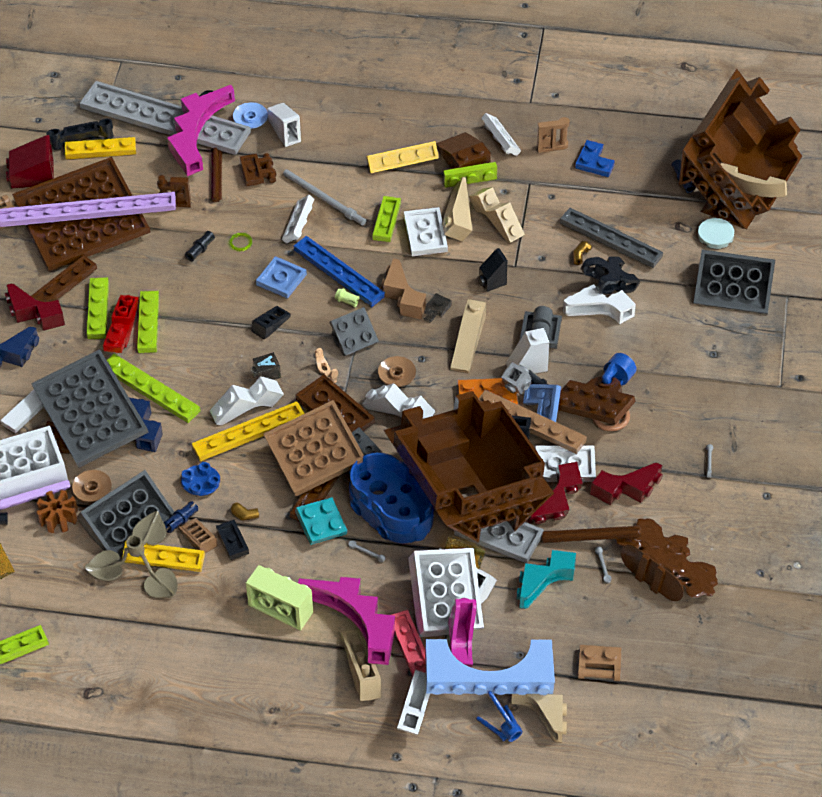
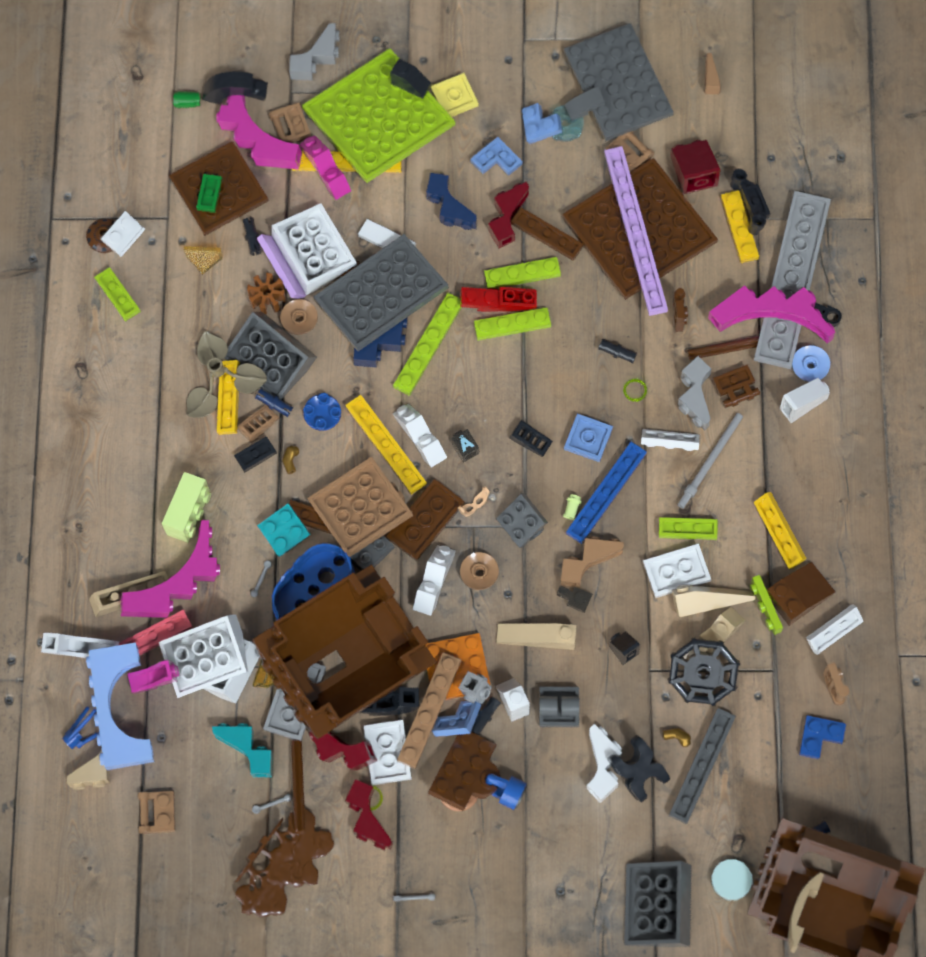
camera: 85 degrees right, 20 degrees up
(265, 197) = (693, 400): none -> light grey arch
(533, 207) = (710, 663): none -> black plate

